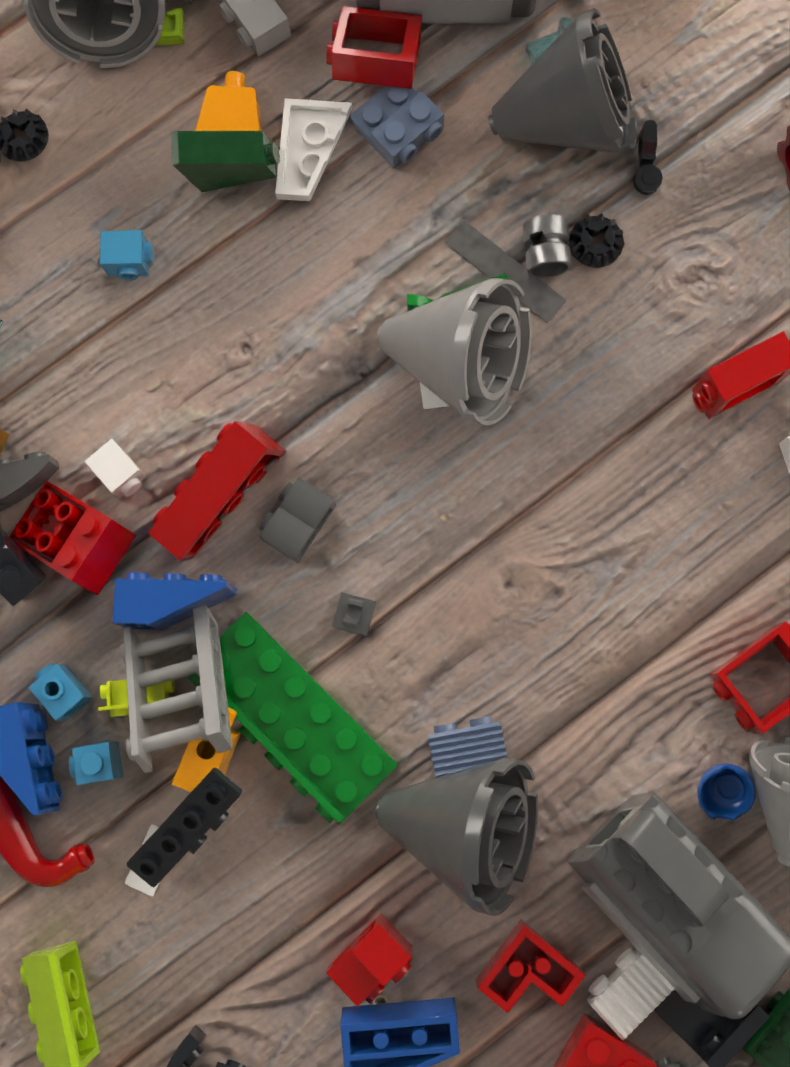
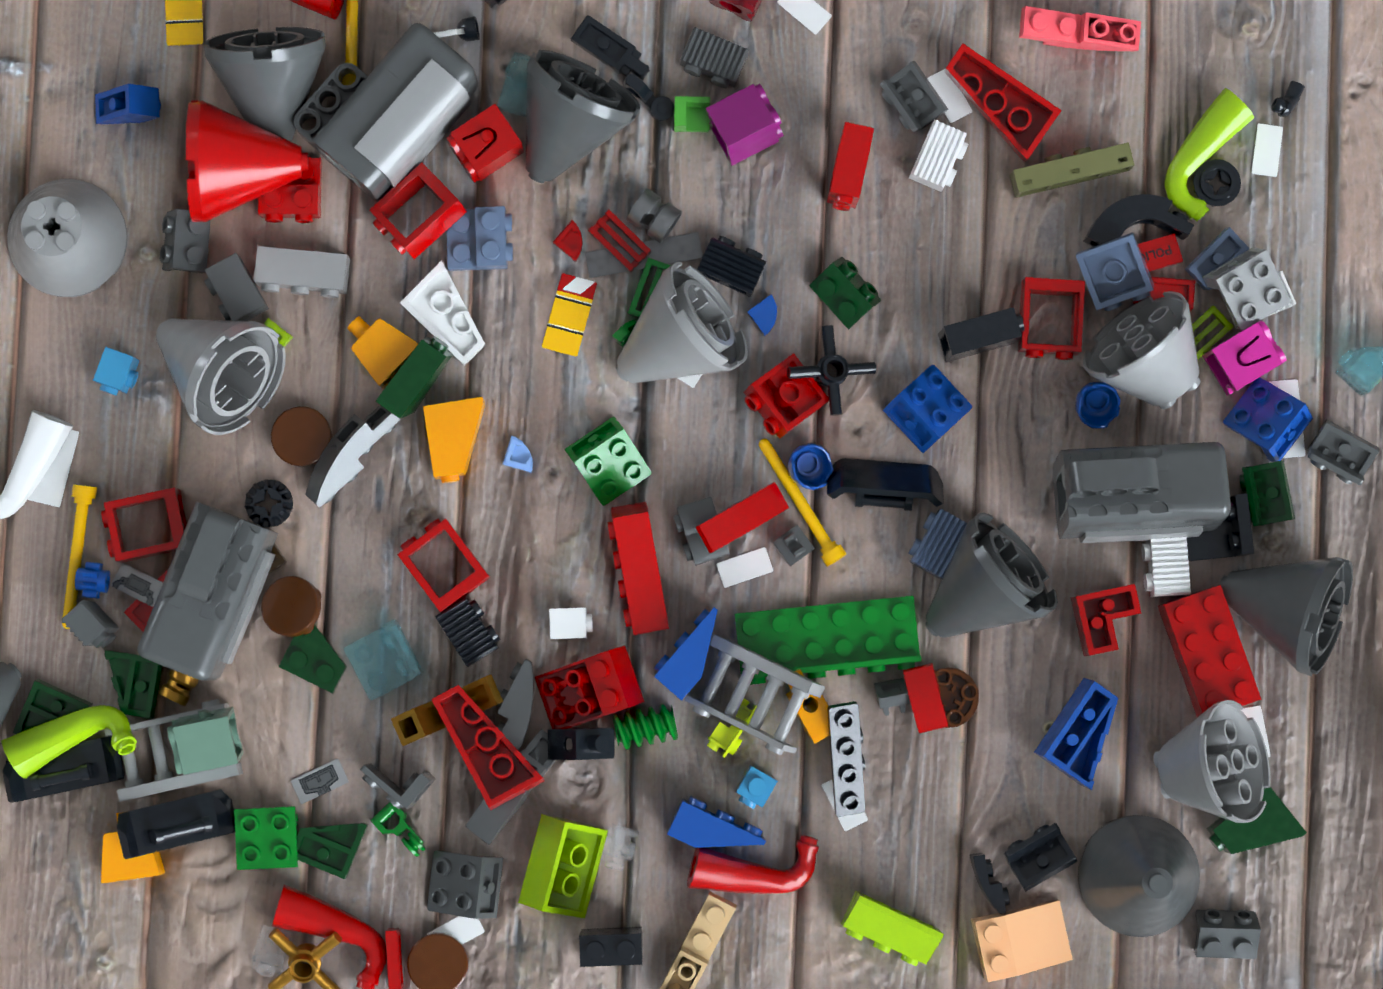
camera: 65 degrees left, 5 degrees up
(38, 387) = (467, 631): none -> black brick
(60, 691) = (688, 775): dark azure brick -> none
(73, 616) = (645, 726): none -> green piece
(76, 353) = (463, 588): none -> red window
(100, 114) = (300, 436): none -> reddish brown tile
(104, 157) = (340, 458): none -> slope
(125, 254) = (422, 499): dark azure brick -> none
(204, 235) = (452, 436): none -> light orange slope
(235, 307) = (518, 456): none -> light blue tile
(287, 821) = (892, 694): none -> dark grey tile
(292, 387) = (608, 461): none -> green bracket
(298, 587) = (744, 567): none -> white sticker
(306, 857) = (925, 698): none -> red slope
(329, 878) = (958, 695): none -> reddish brown tile
(336, 542) = (742, 517): none -> red slope
(371, 961) = (1019, 709): red brick -> none
(376, 652) = (830, 550): none -> yellow piece
(397, 251) = (569, 315): none -> yellow sticker
(438, 568) = (810, 466): none -> blue hair
(463, 199) = (570, 241): none -> red tile
(482, 651) = (885, 483): none -> black piece
(483, 53) = (485, 143): none -> red piece
(483, 493) = (784, 401): none -> red plate
(500, 212) = (602, 223): none -> red tile
(543, 416) = (764, 314): none -> blue tile
(555, 507) = (821, 374): none -> black bar
(561, 350) = (731, 265): none -> black brick
(584, 632) = (927, 408): none -> blue bracket
(597, 255) = (667, 189): black gear -> none
(626, 470) = (845, 292): none -> dark green bracket
(661, 93) = (609, 48): none -> black hinge
(666, 206) = (691, 114): none -> bright green panel
(697, 624) = (981, 334): none -> black brick
(699, 253) = (744, 123): none -> magenta piece
(732, 185) = (714, 58): none -> dark grey brick

